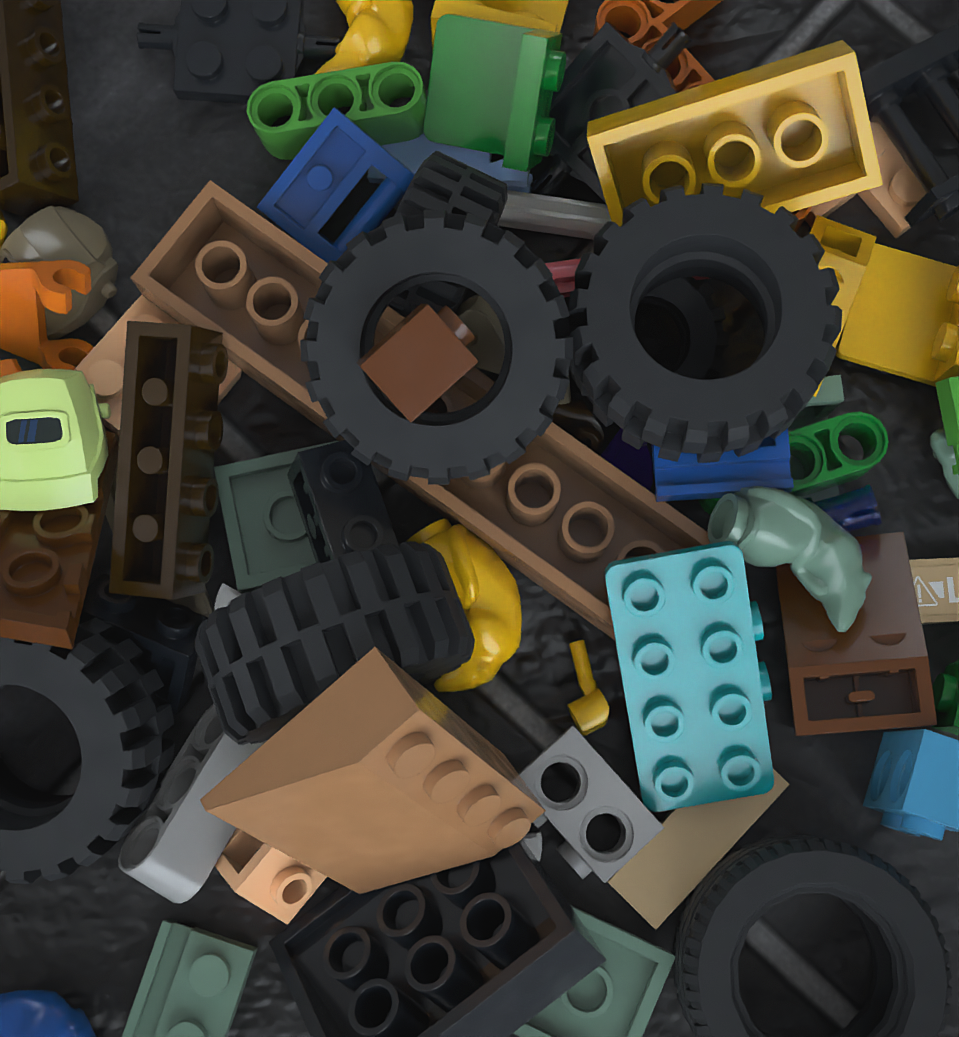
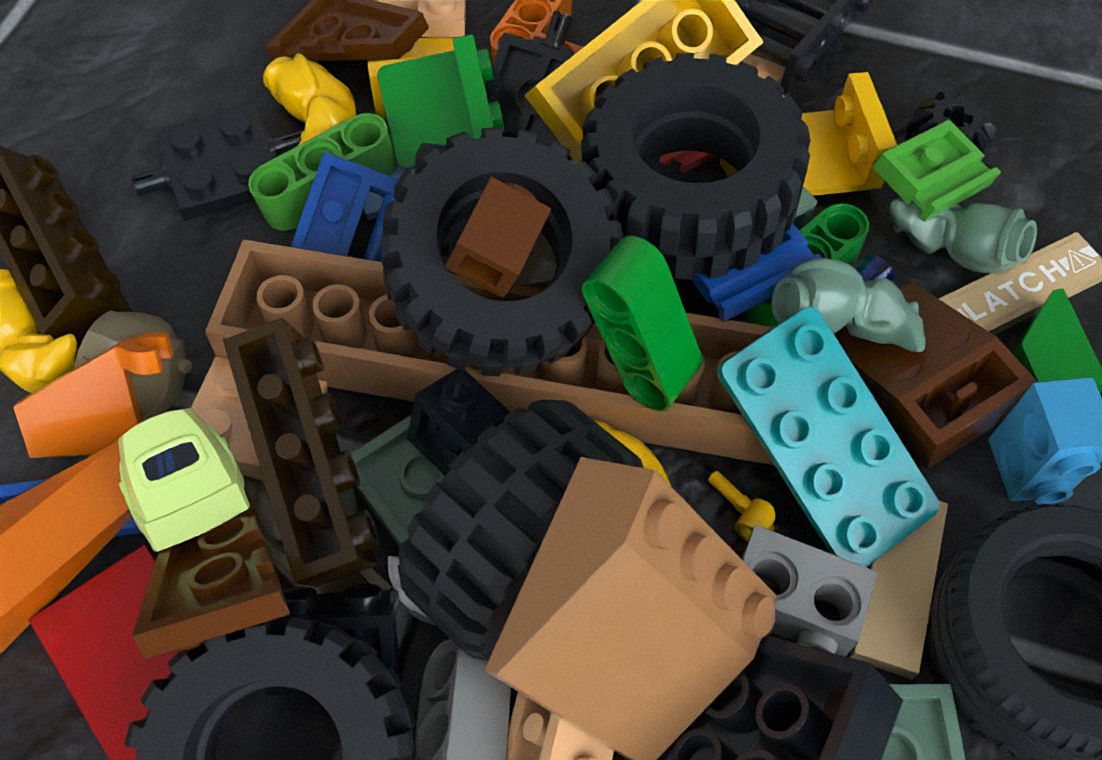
camera: 25 degrees left, 20 degrees down
(542, 495) = (643, 323): none -> green beam

